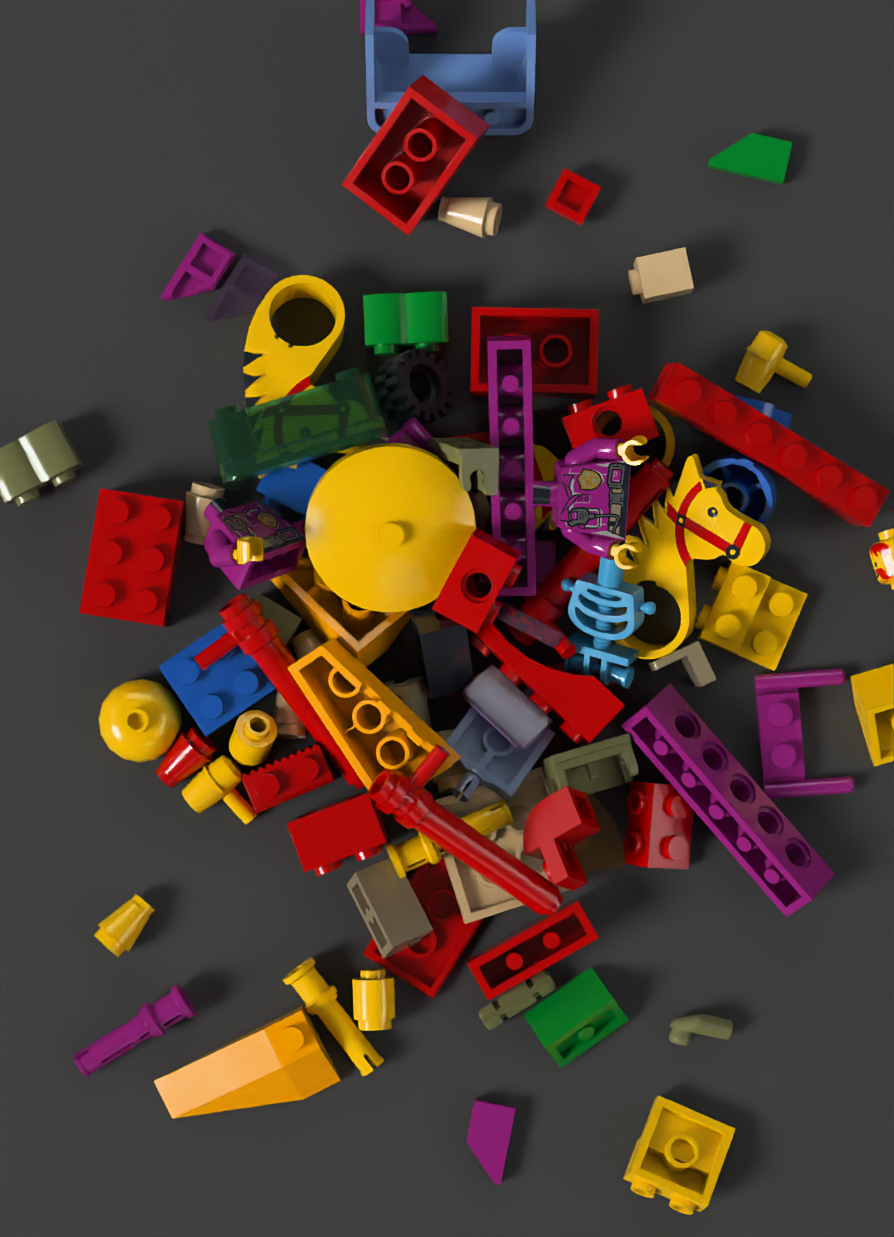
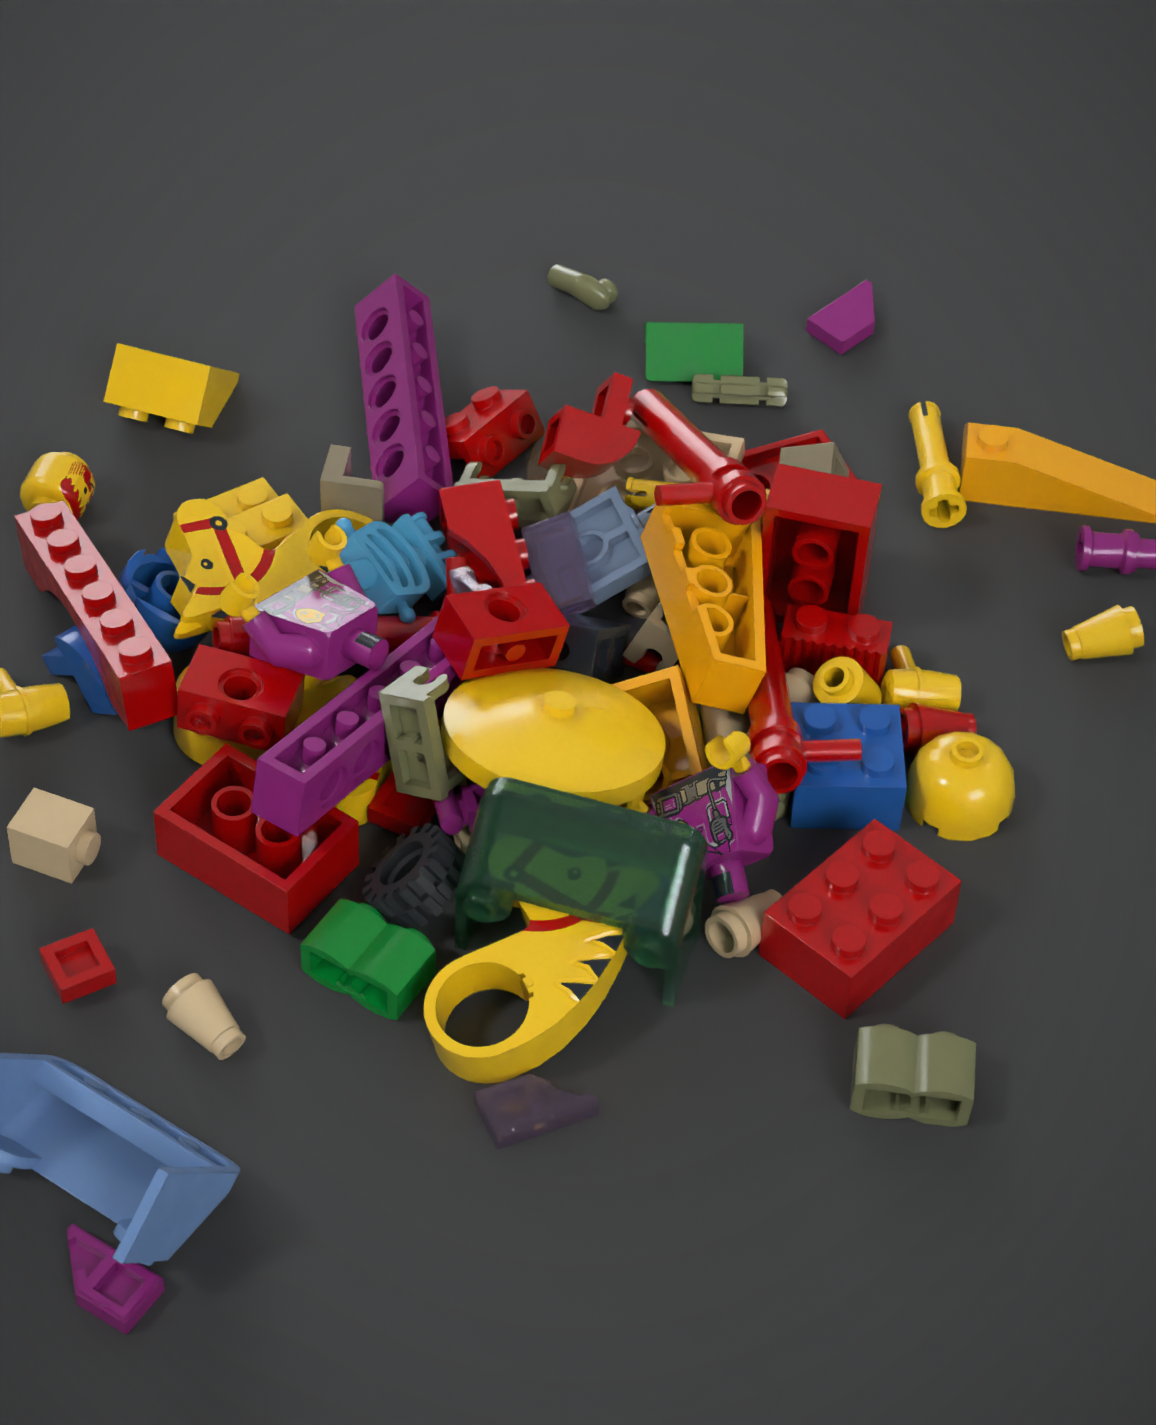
camera: 145 degrees left, 40 degrees down
(200, 269) = (563, 1159): magenta tile -> none
(373, 1000) = (884, 449): yellow brick -> none
(415, 154) = (216, 1073): red brick -> none
(531, 949) = (710, 393): red brick -> none
(679, 1156) = (681, 212): yellow plate -> none
(782, 734) = (300, 439): magenta plate -> none

